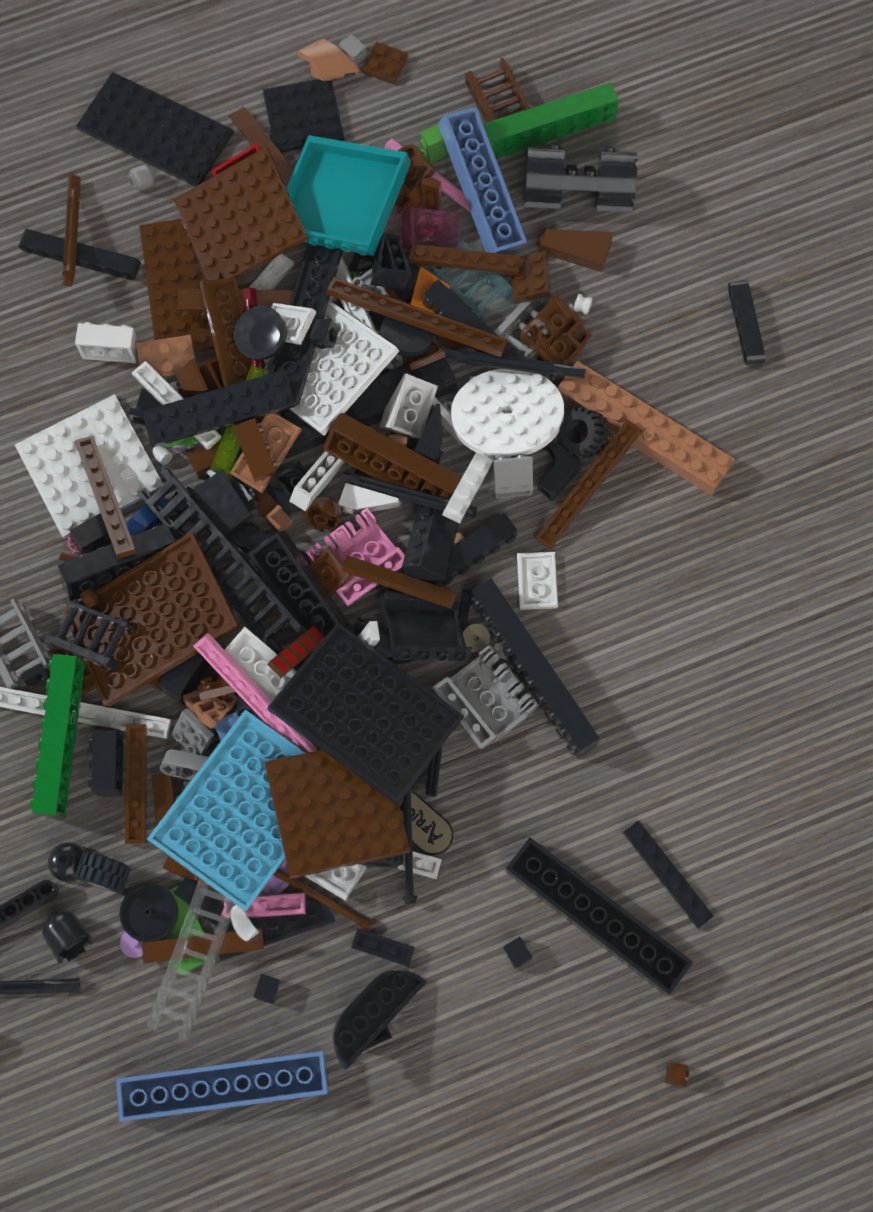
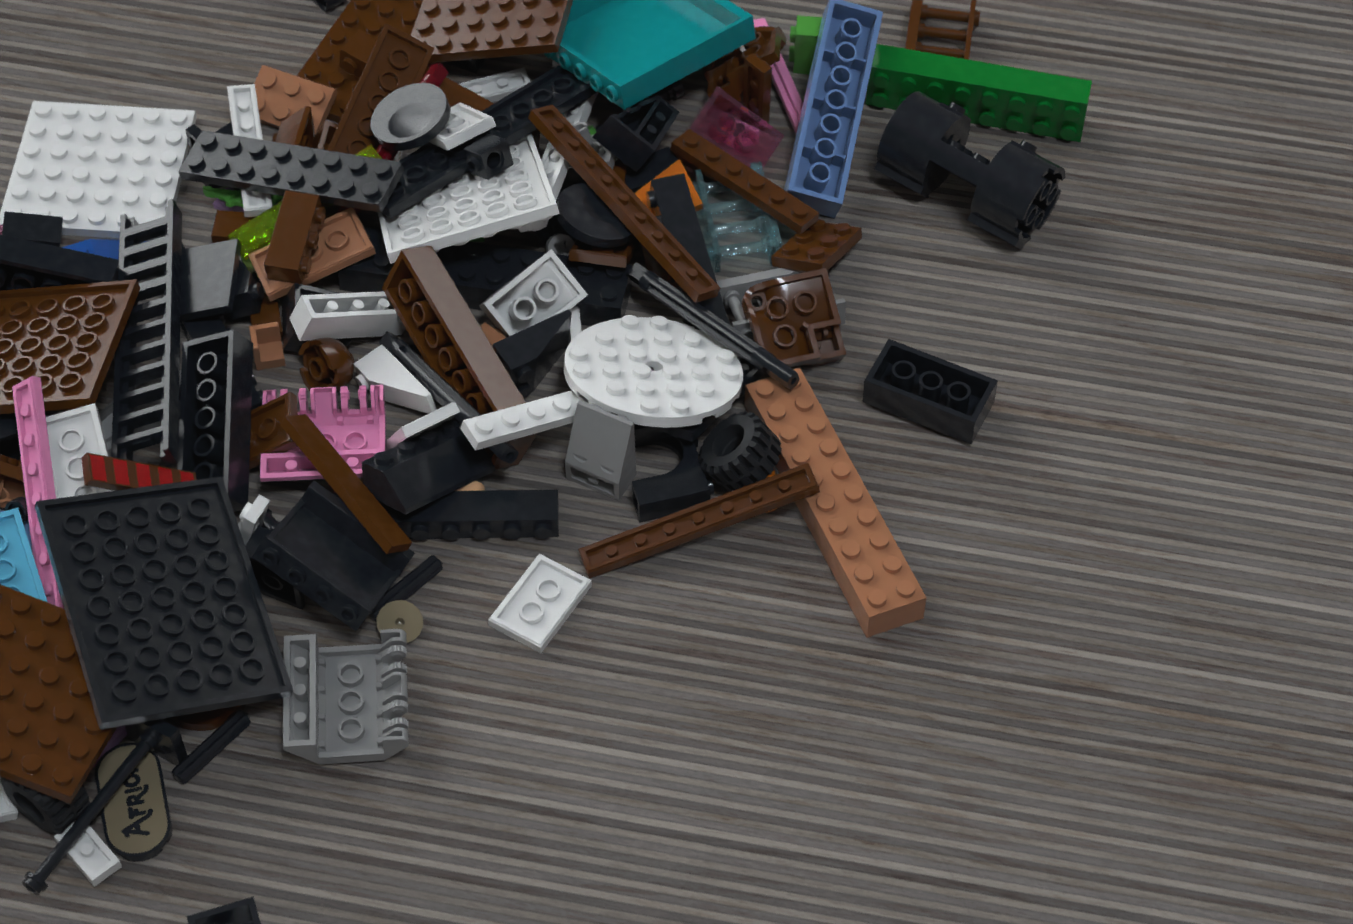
camera: 30 degrees right, 20 degrees down
(105, 497) = (72, 194): plate -> none
(107, 342) = (228, 46): white brick -> none
(162, 455) = (193, 203): white hose -> none
(409, 521) = (423, 424): none -> white tile
(534, 668) = (438, 701): black brick -> none
(577, 246) = (913, 251): reddish brown slope -> none
(583, 304) = (865, 316): white wheel -> none
(650, 332) = (929, 391): none -> black brick
(746, 322) = (1077, 453): black beam -> none

